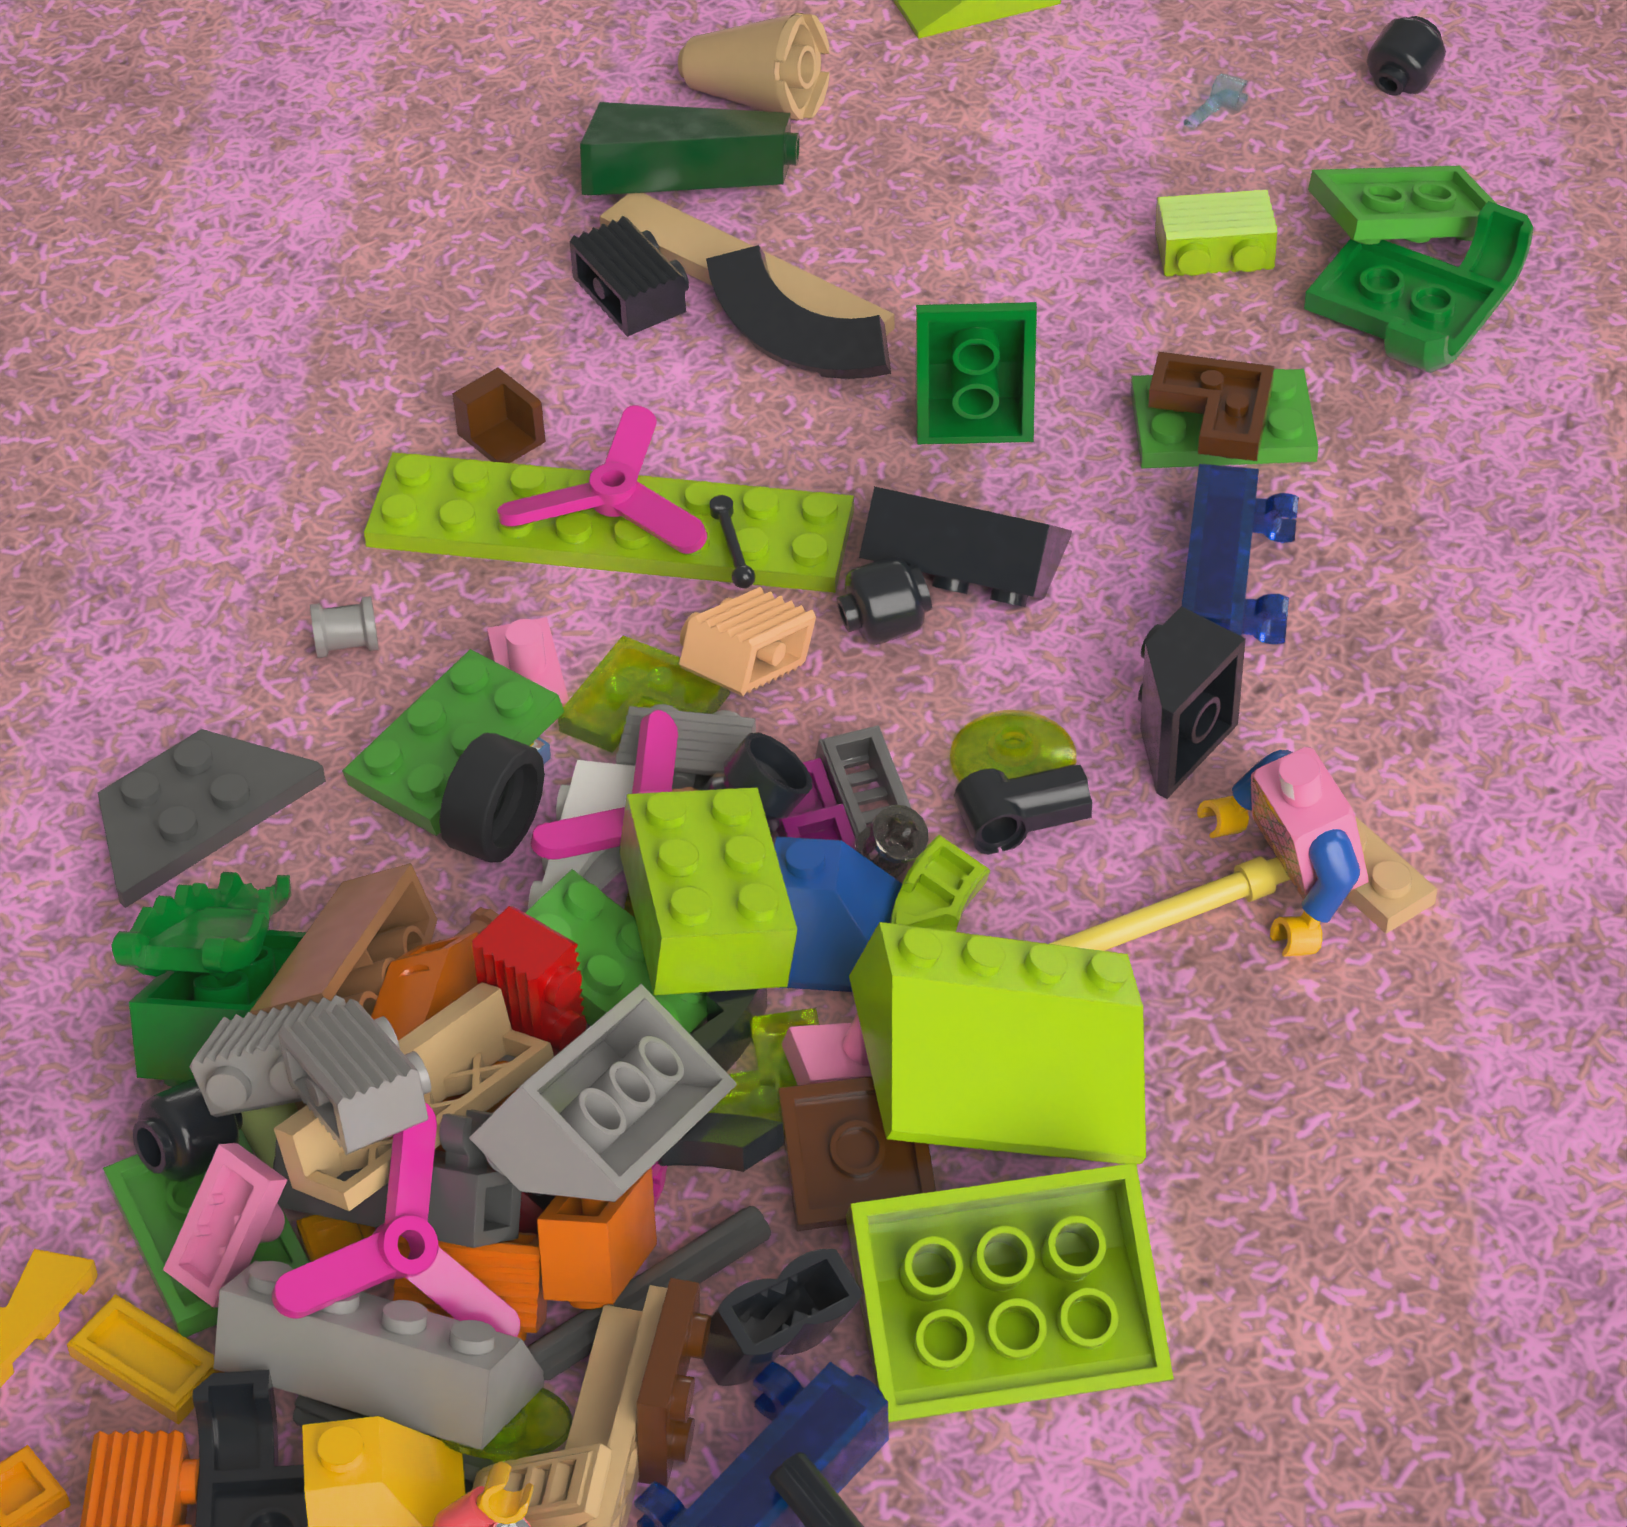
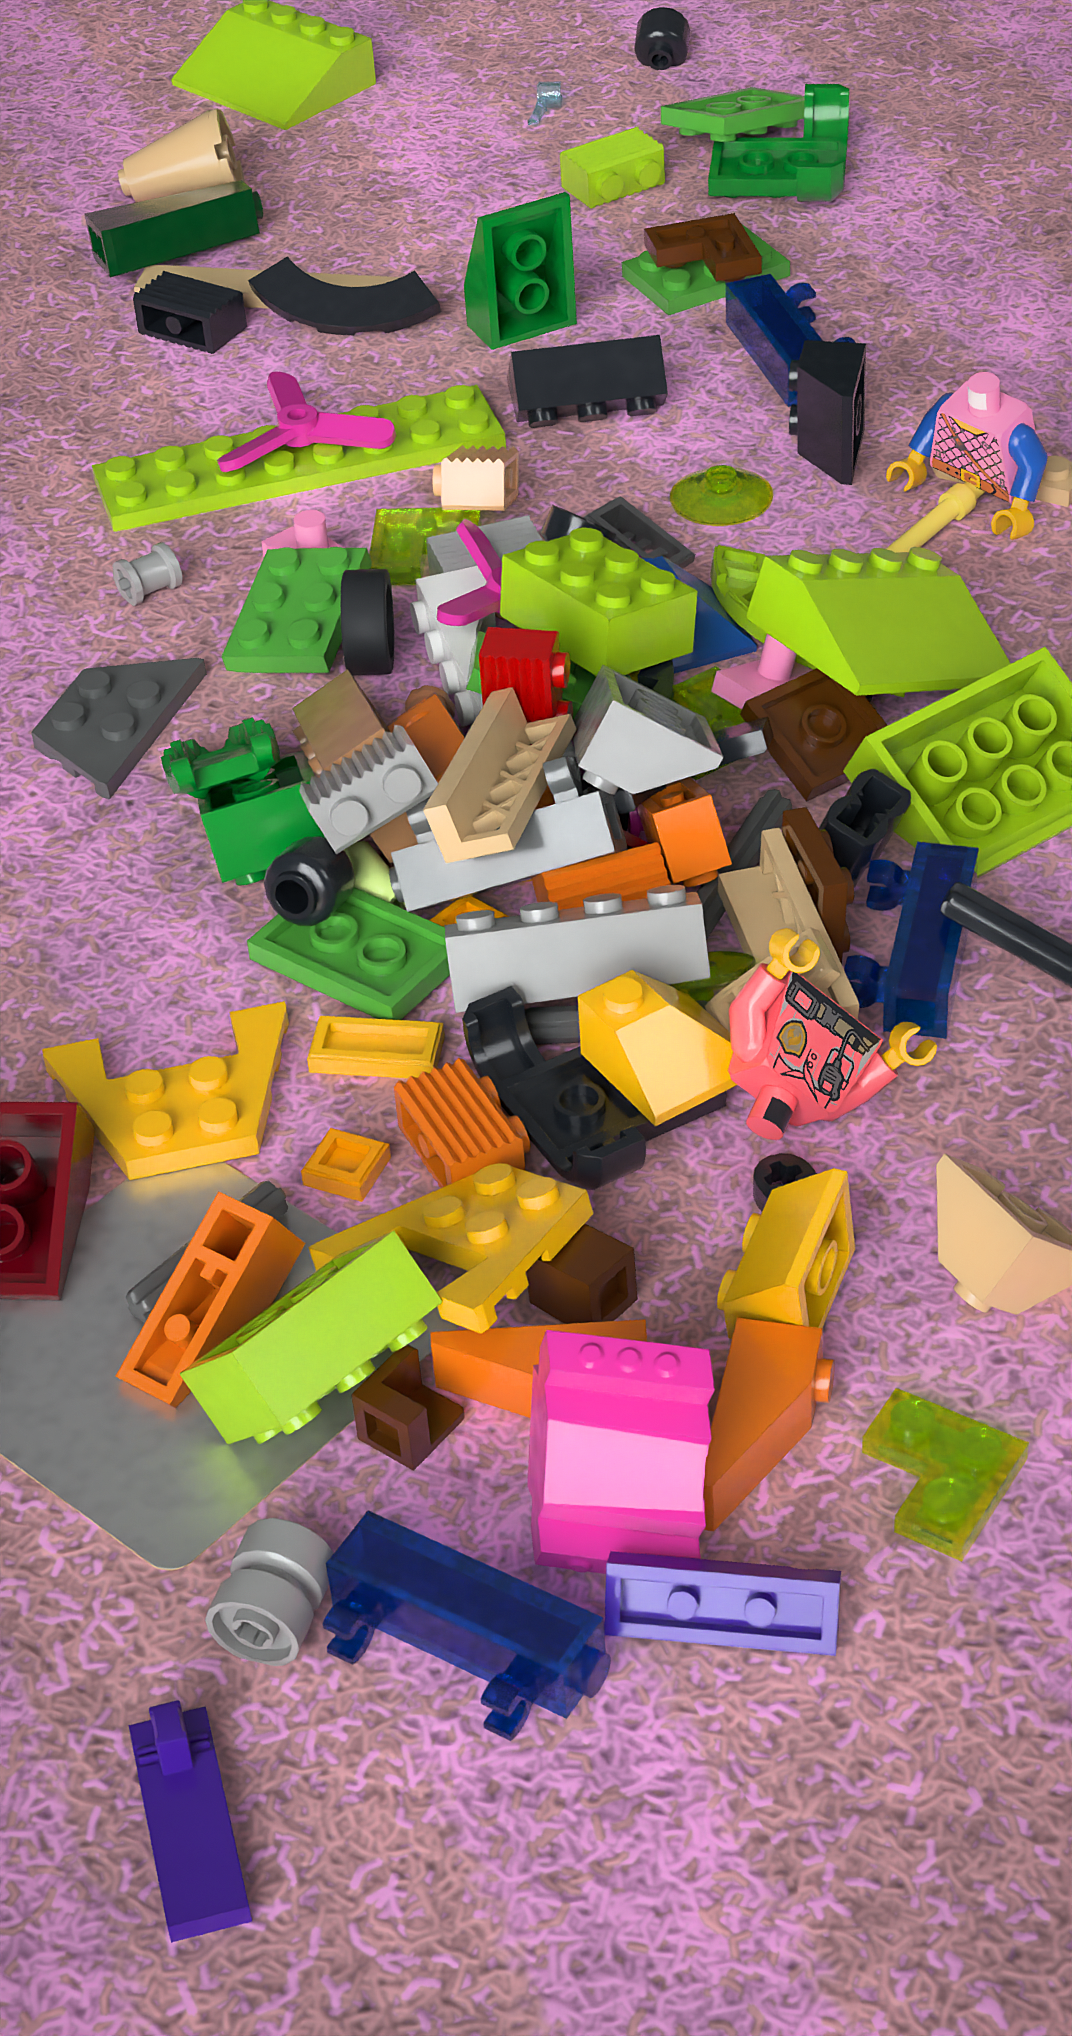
camera: 25 degrees left, 5 degrees down
(227, 1222) = (399, 915): bright pink tile -> none
(355, 1075) = (471, 745): light grey brick -> none
(378, 1257) = (563, 865): dark pink piece -> none
(499, 417) = (161, 417): reddish brown panel -> none
(722, 509) = (440, 446): black hinge -> none
(884, 600) = (558, 429): black head -> none
(889, 827) = (688, 556): clear smoke bush -> none
(1005, 809) = (752, 518): black piece -> none

